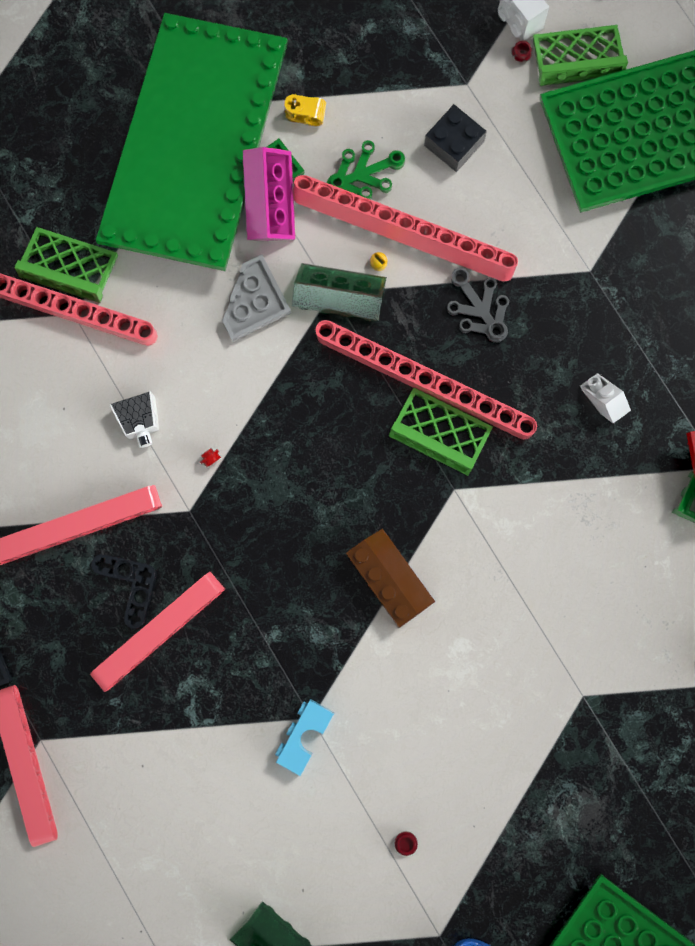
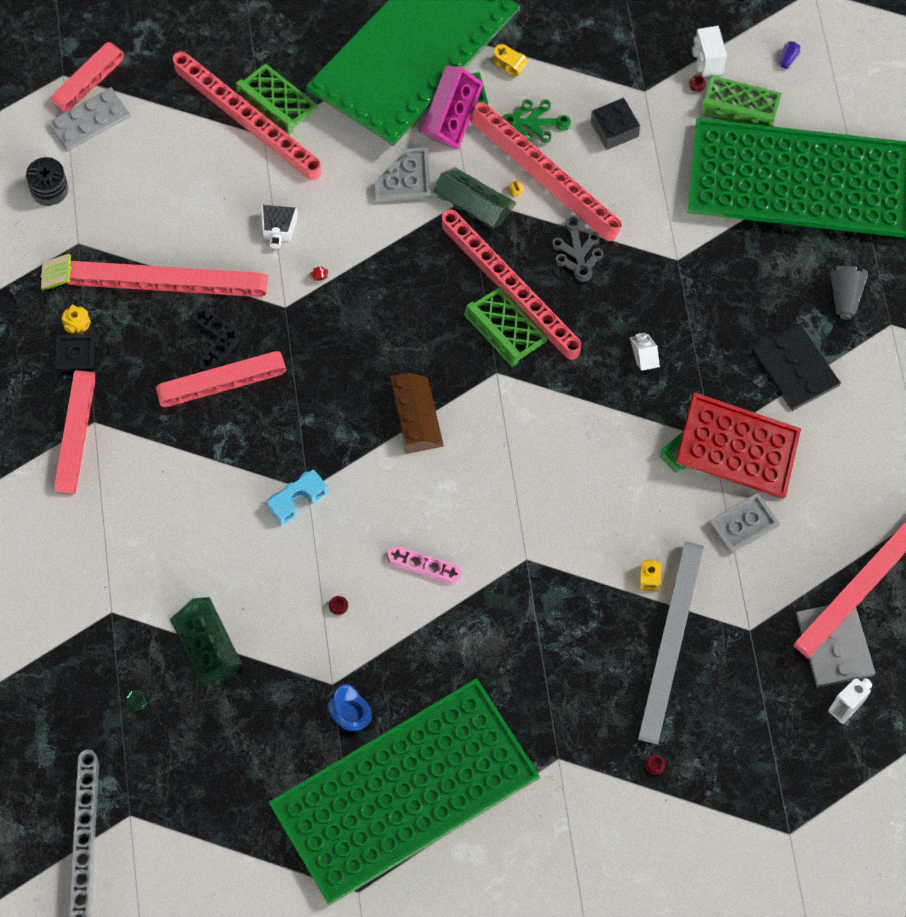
camera: 15 degrees right, 15 degrees down
(477, 750) = (423, 567): none -> bright pink beam

